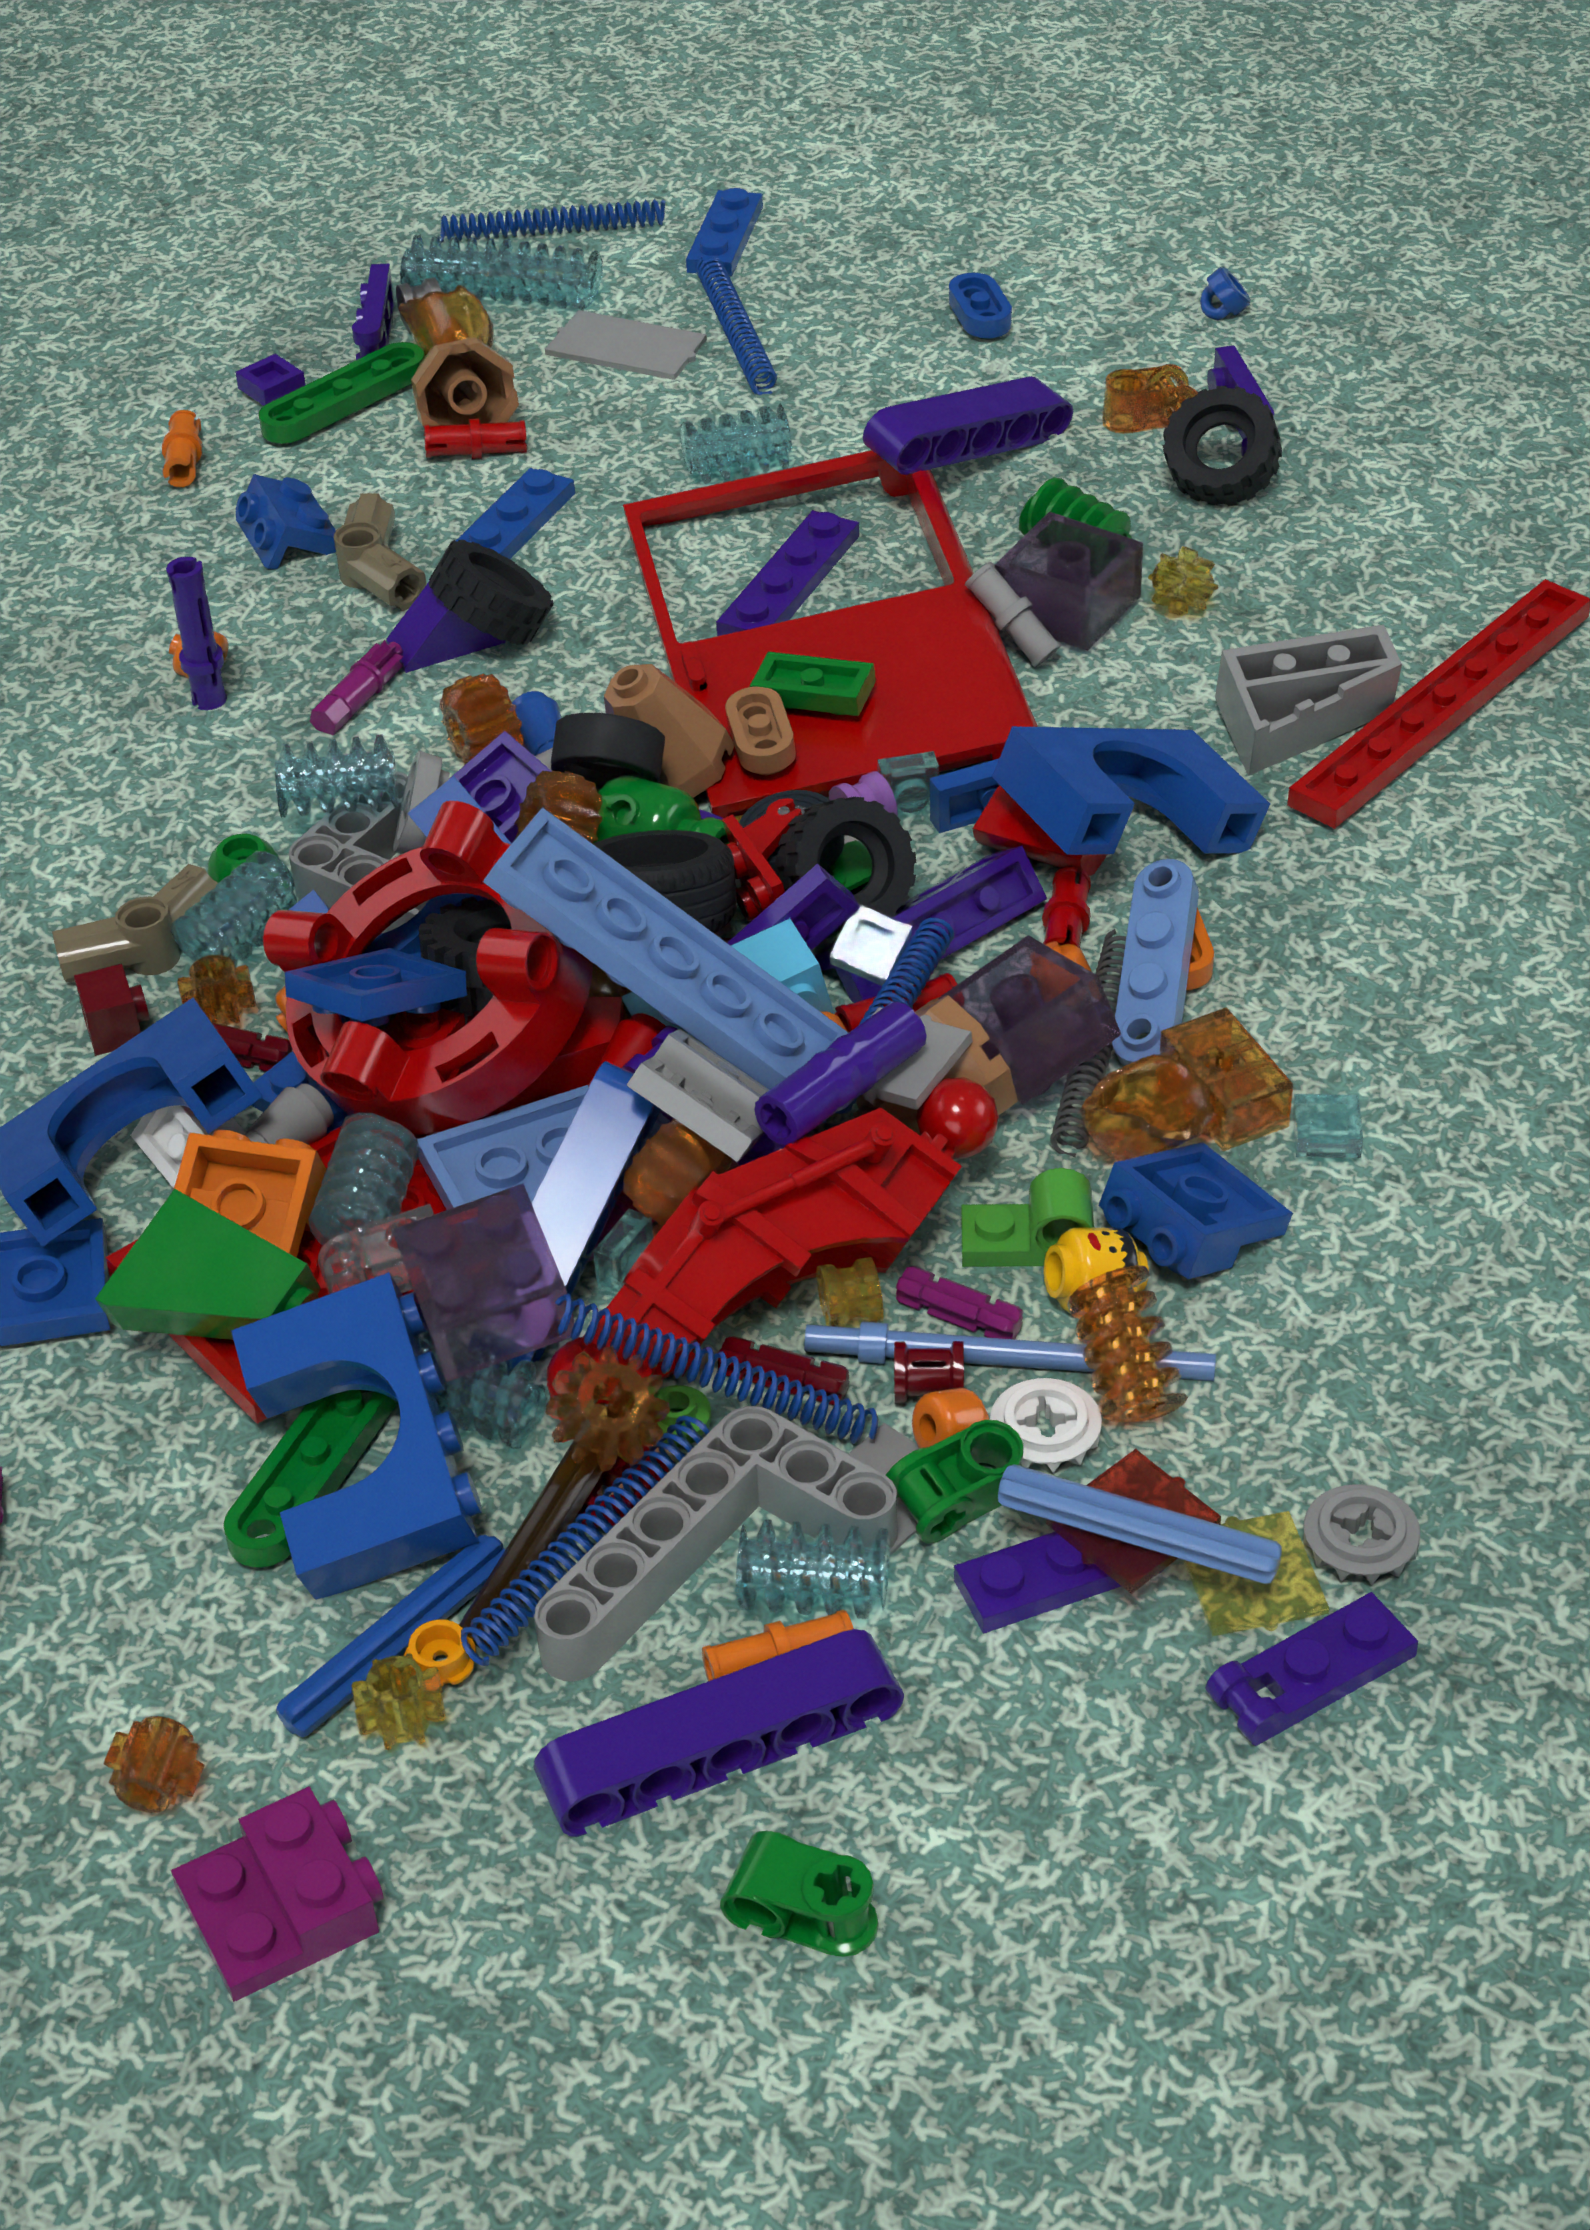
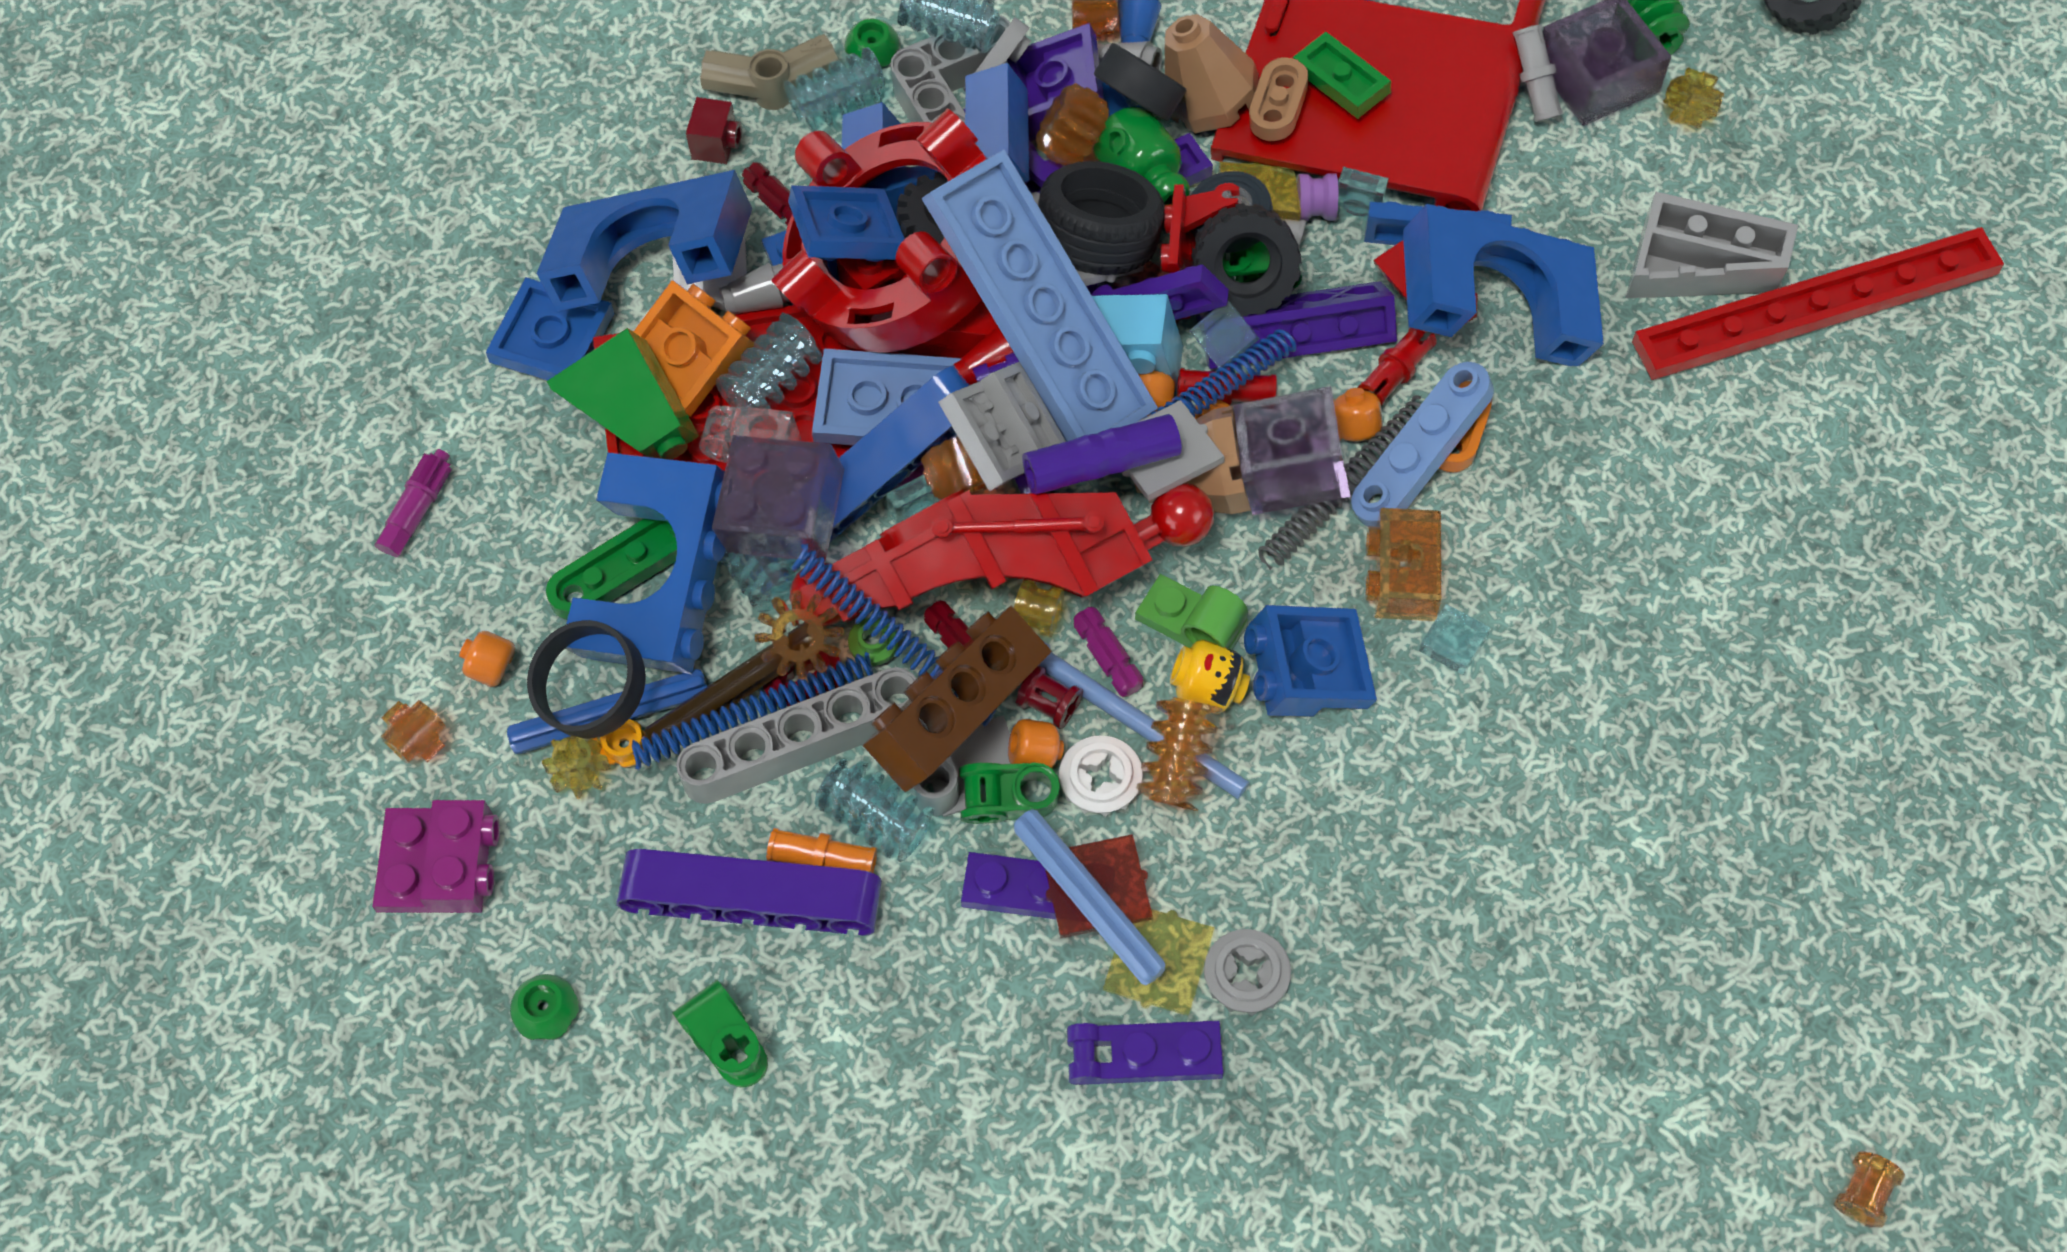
camera: 30 degrees right, 20 degrees up
(194, 1648) = (487, 658): none -> orange piece
(218, 988) = (781, 147): clear orange gear -> none
(322, 1531) = (547, 654): none -> black tyre
(546, 2010) = (546, 1023): none -> green plate
(838, 1394) = (901, 741): none -> reddish brown brick
(1147, 1107) = (1329, 566): clear orange hair -> none

